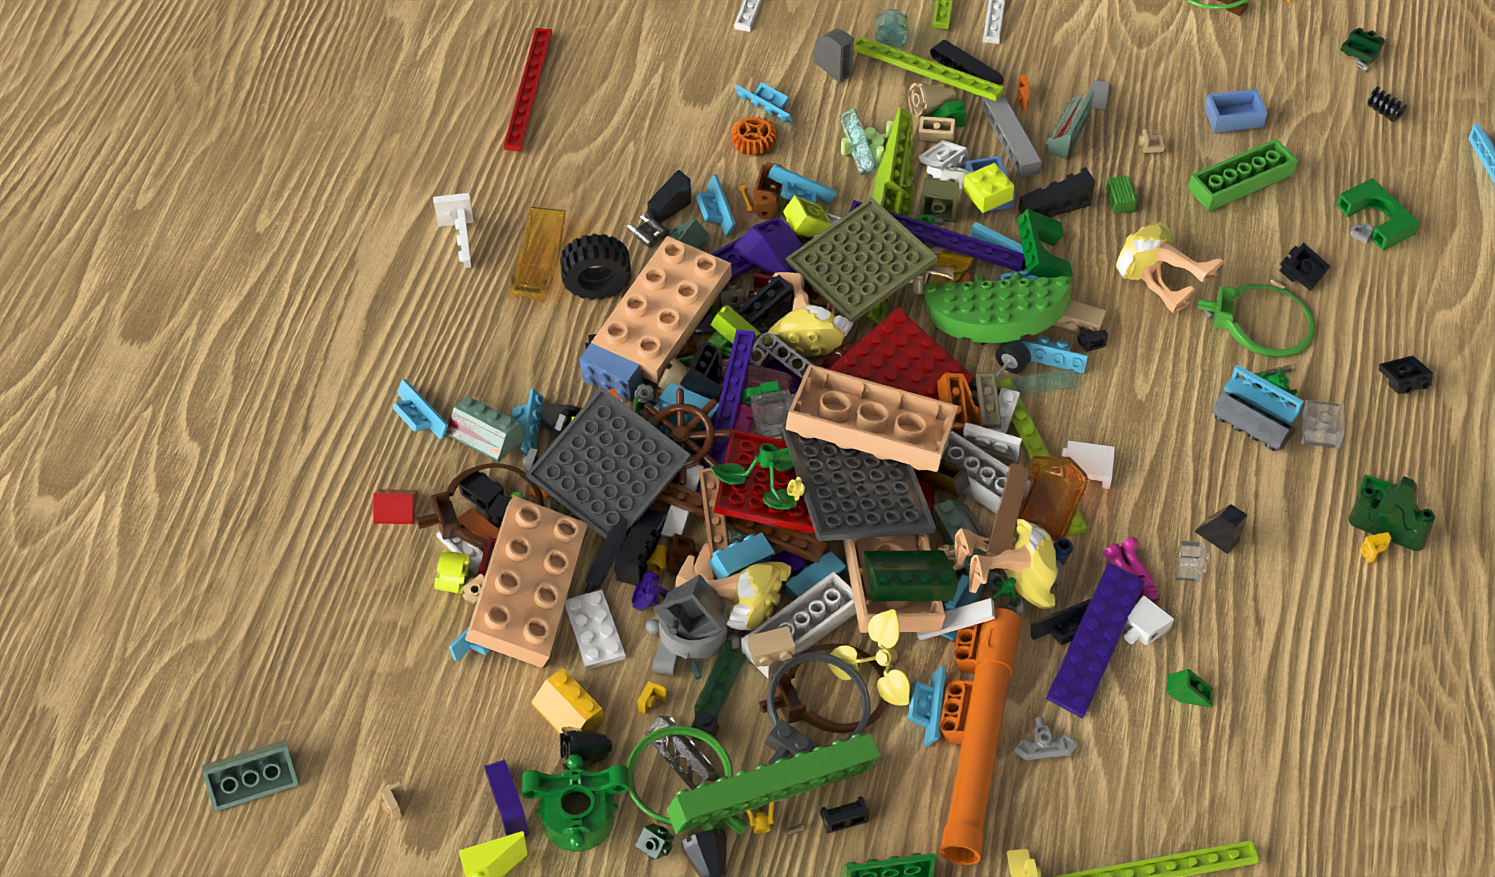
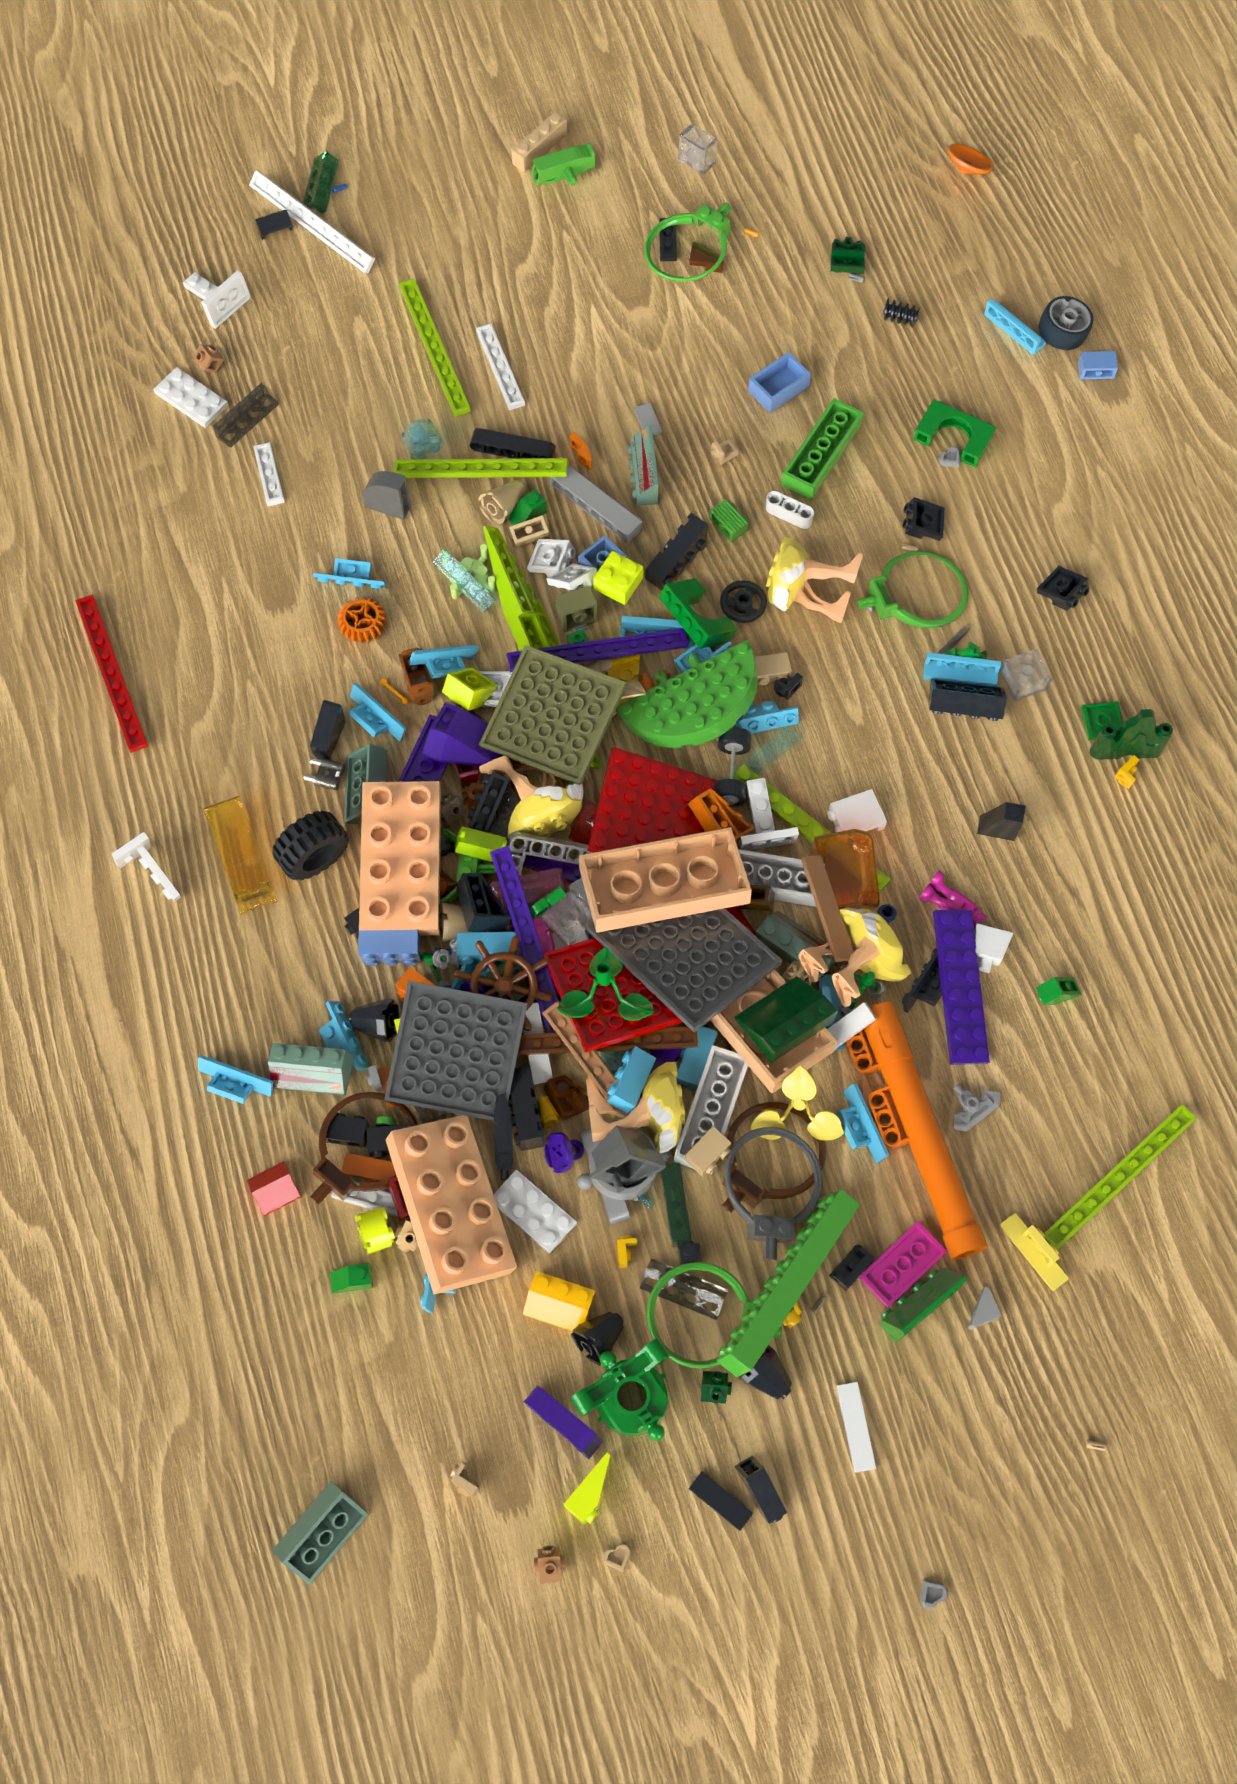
camera: 30 degrees left, 15 degrees up
(411, 601) = (351, 1278): none -> green slope
(796, 488) = (642, 988): light yellow plate -> none
(893, 835) = (902, 1264): none -> dark pink plate
(988, 400) = (745, 801): dark tan tile -> none
(1093, 258) = (743, 595): none -> black wheel
(1182, 209) = (797, 511): none -> white beam
(1191, 561) = (996, 868): clear brick -> none

